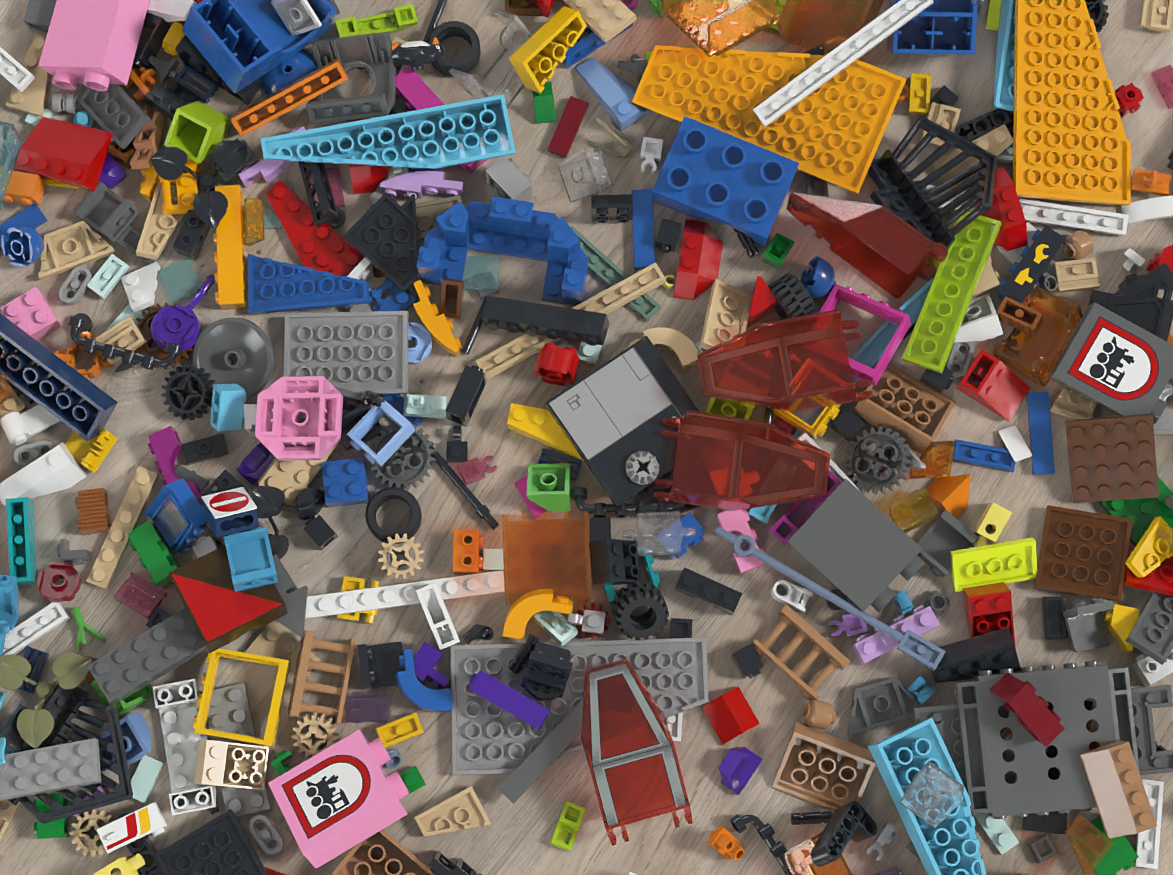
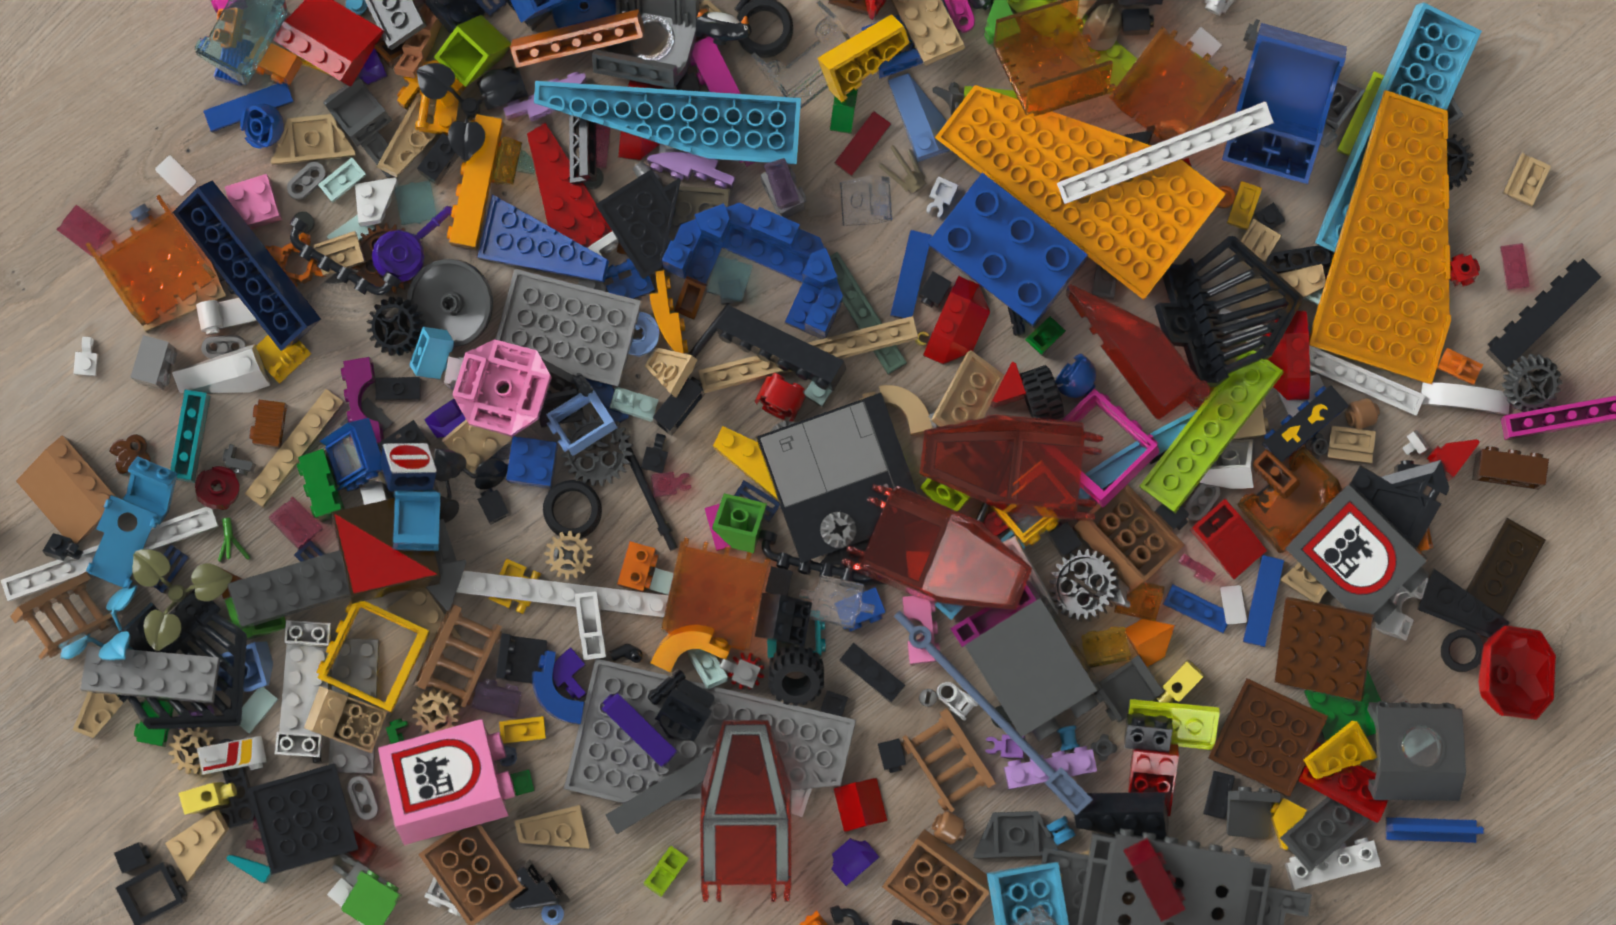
camera: 20 degrees right, 5 degrees up
(450, 363) = (671, 368): none -> tan wing
(507, 171) = (782, 183): none -> clear purple brick
(612, 207) = (884, 243): black bracket -> none
(760, 601) = (933, 698): none -> light grey hinge
(976, 577) = (1148, 732): none -> black brick
(978, 421) = (1201, 572): none -> clear pink plate

